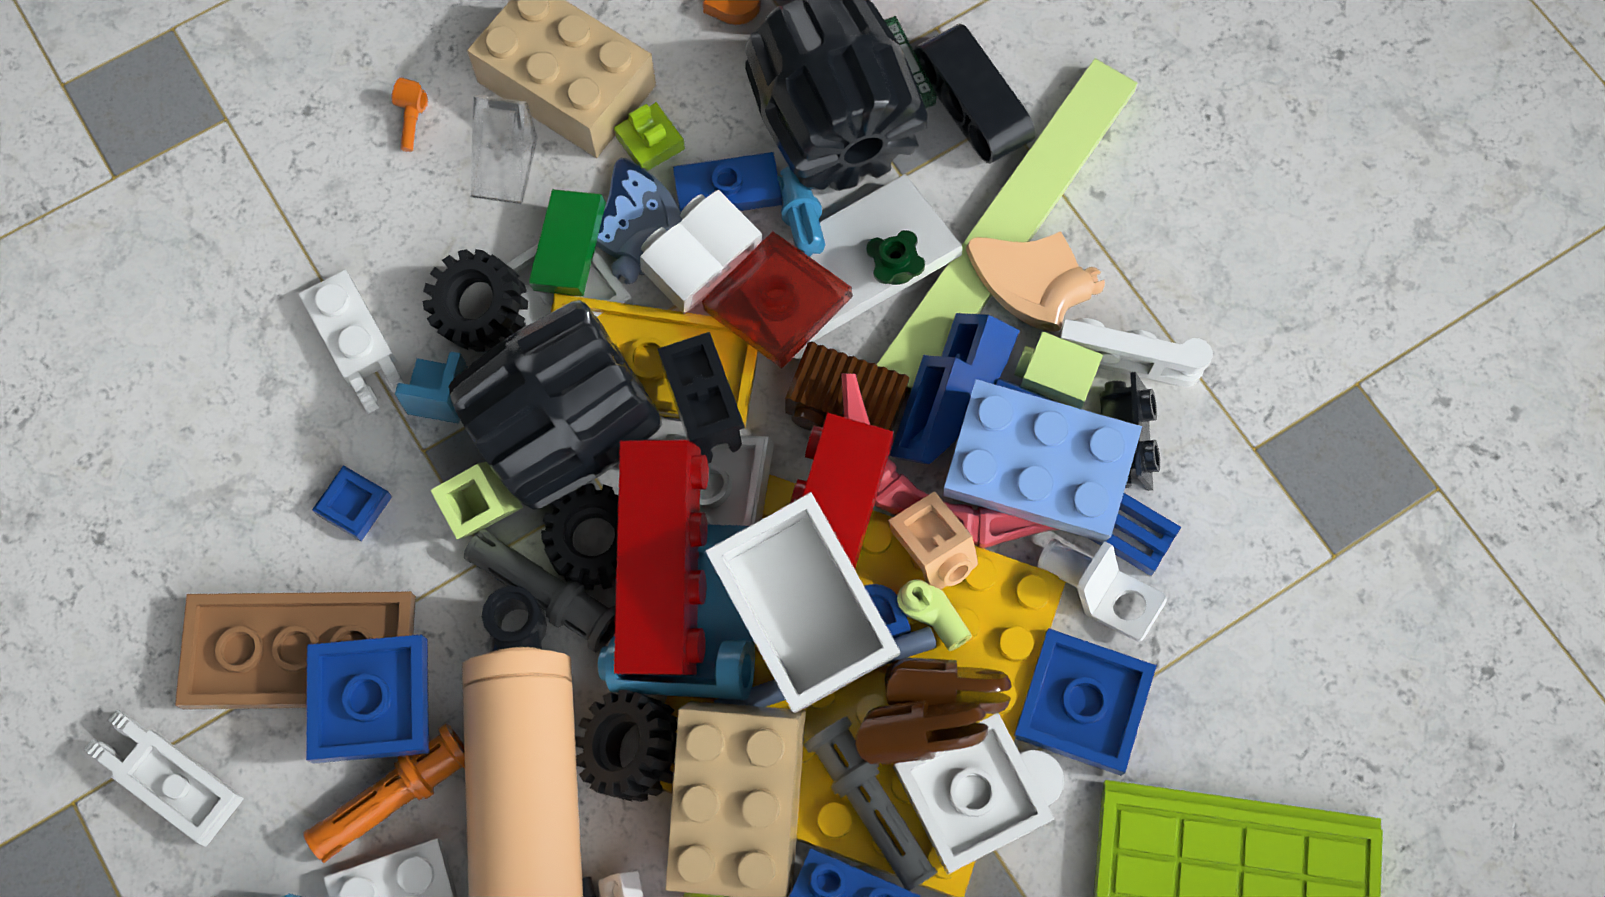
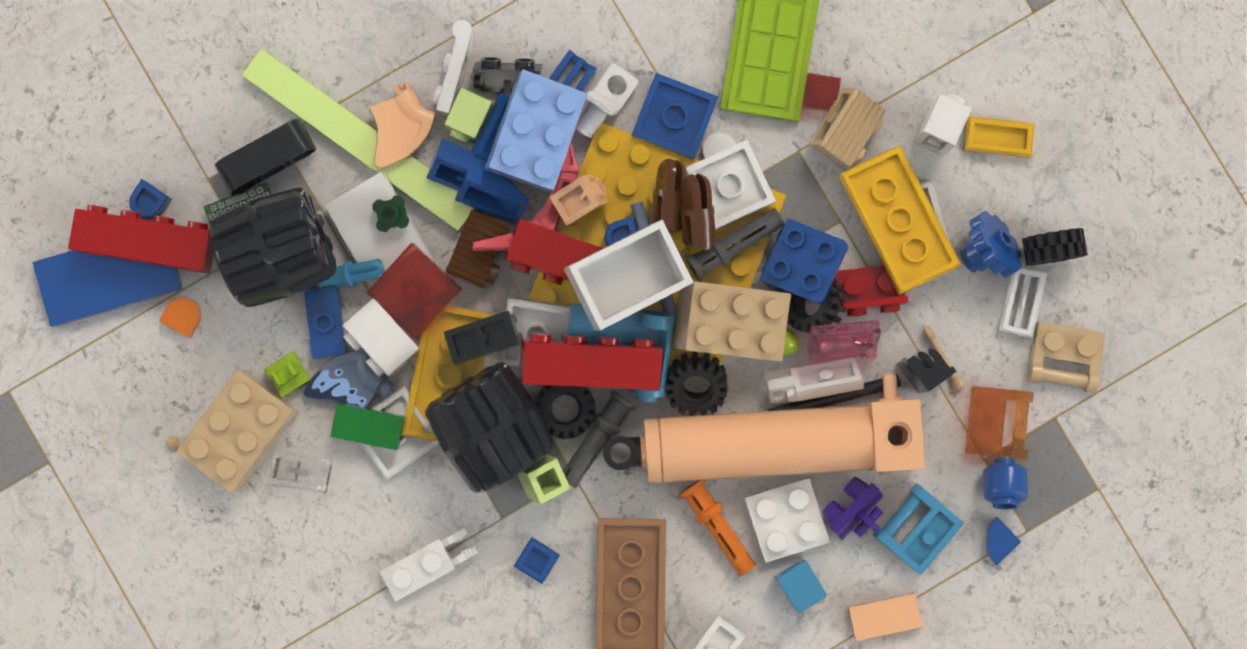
camera: 90 degrees left, 15 degrees up
(367, 699) = (666, 538): blue plate -> none
(414, 100) = (252, 535): orange hand -> none
(429, 390) = (463, 509): dark azure panel -> none
(454, 282) = (412, 504): black tyre -> none
(934, 609) = (619, 202): yellowish green arm -> none

